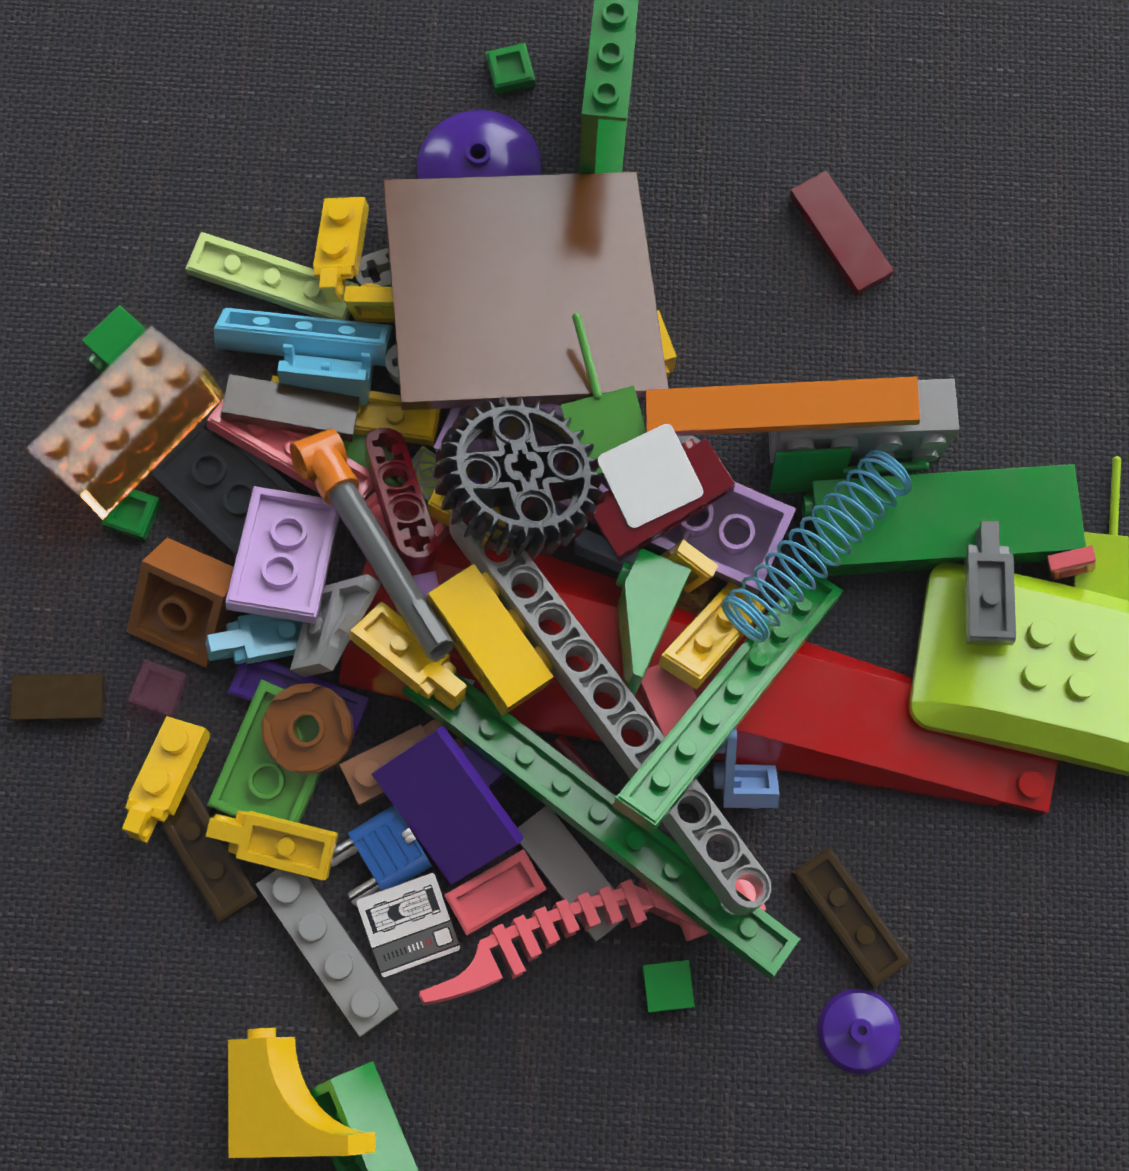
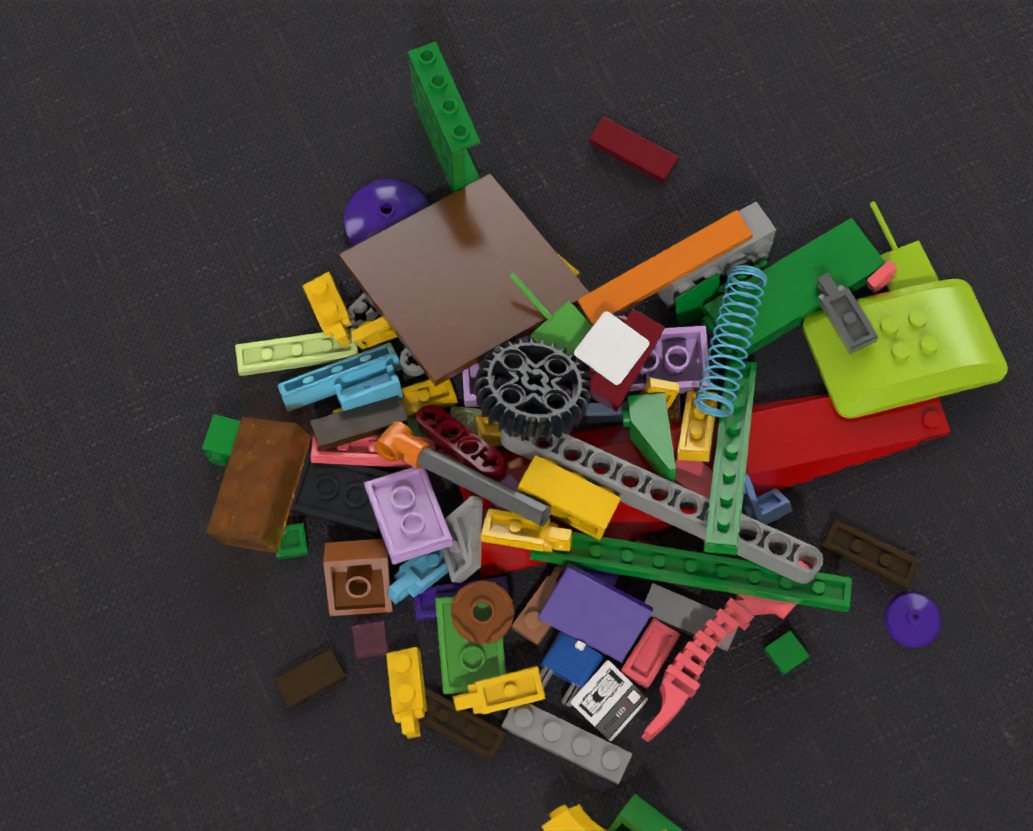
camera: 25 degrees left, 5 degrees down
(510, 68) = (373, 149): green tile -> none

